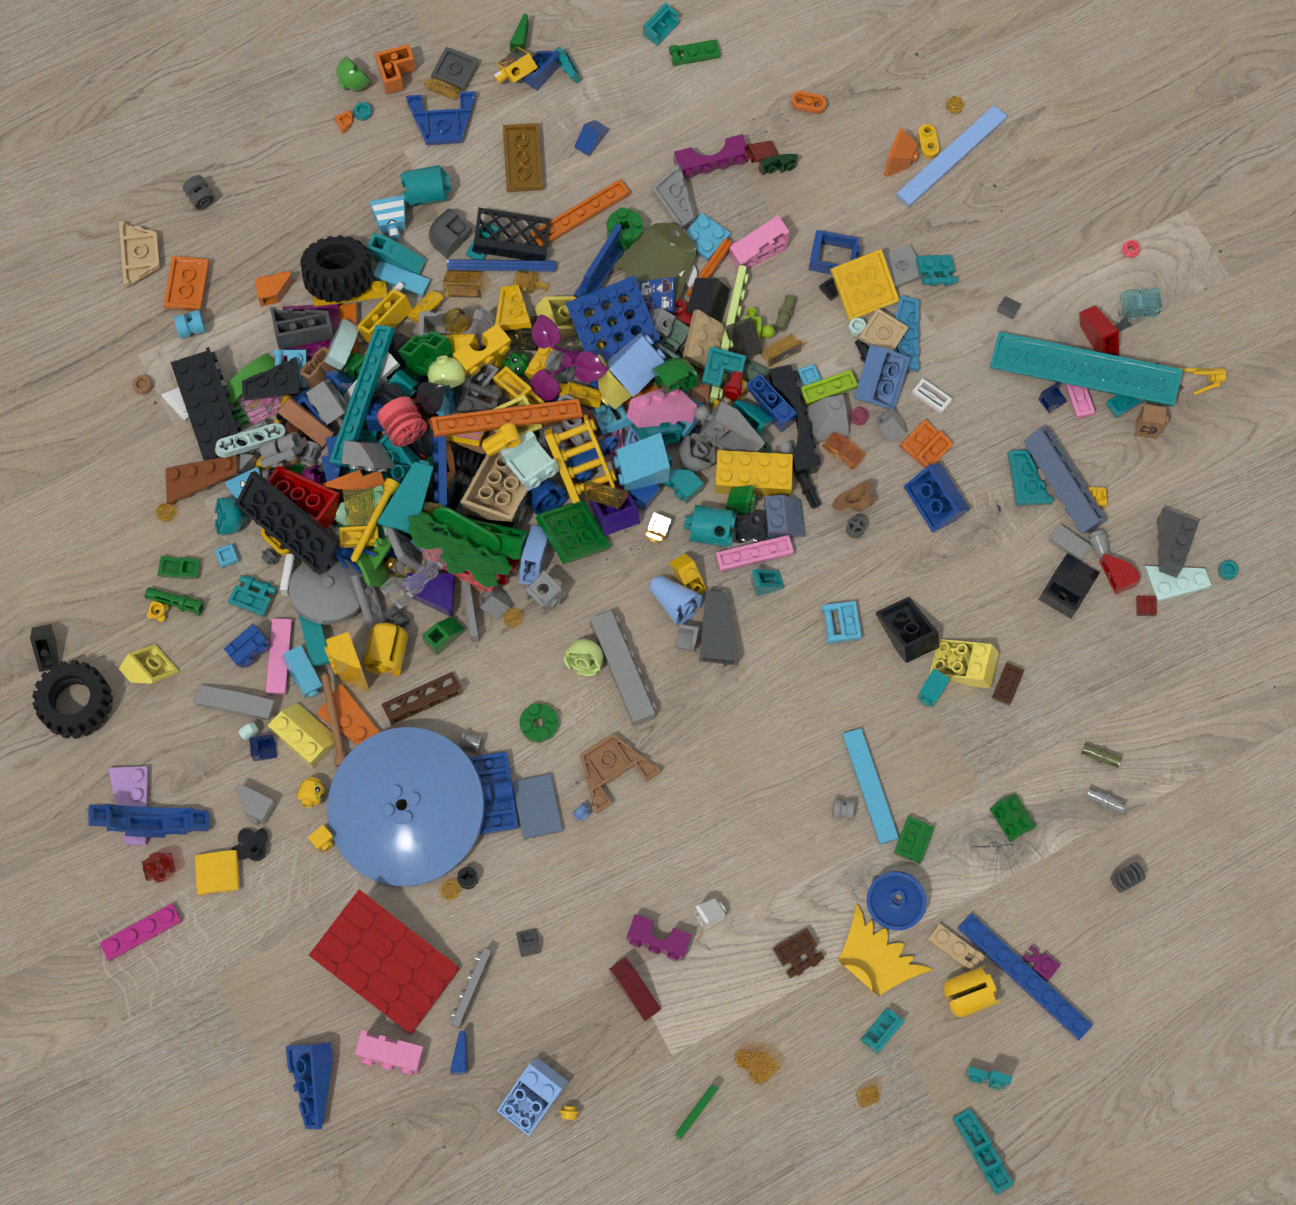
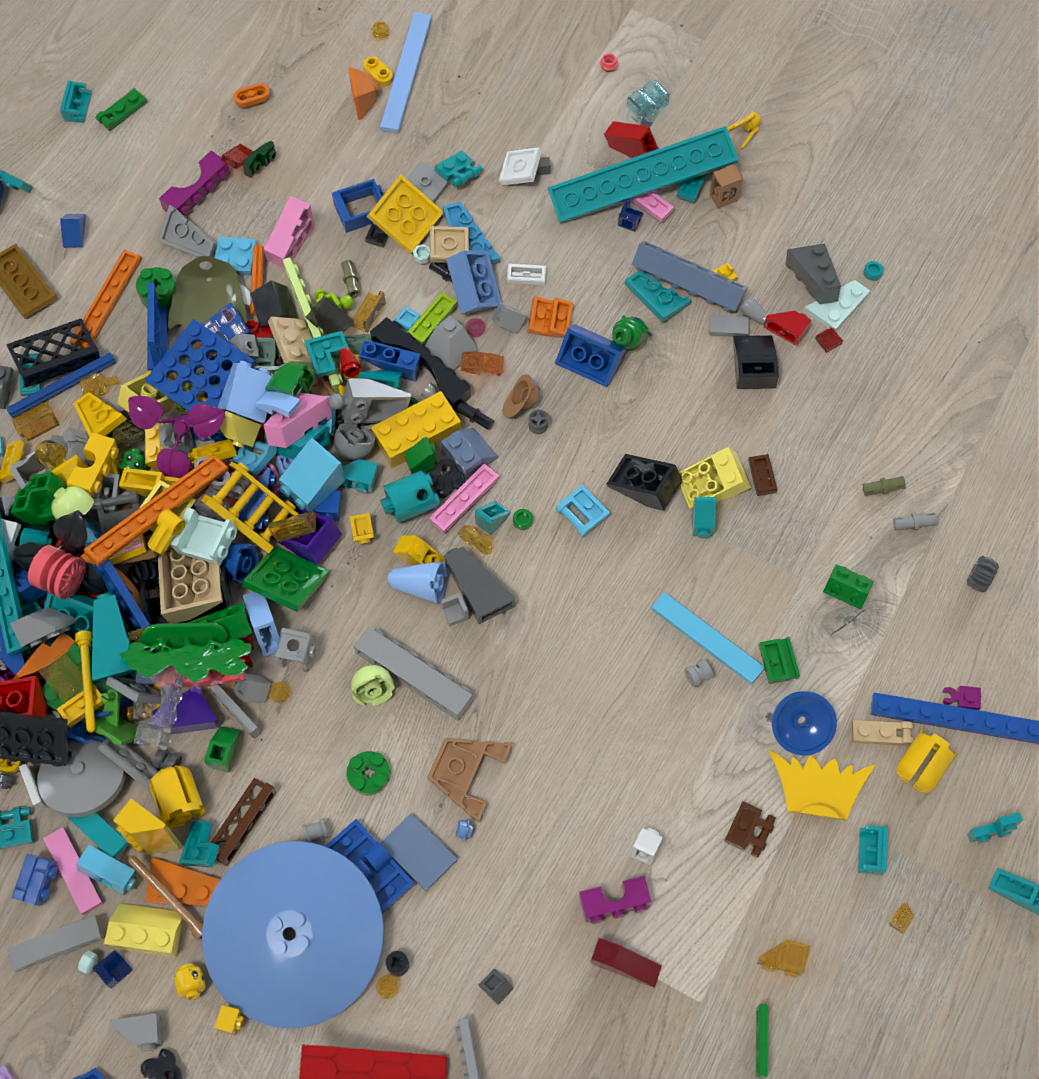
camera: 30 degrees left, 5 degrees down
(375, 698) = (196, 849): none -> teal plate
(653, 387) = (278, 402): none -> light blue slope
(739, 588) = (480, 542): none -> clear yellow plate
(789, 599) = (522, 519): none -> green tile
(980, 498) = (629, 332): none -> green piece
(989, 298) = (520, 166): none -> white tile

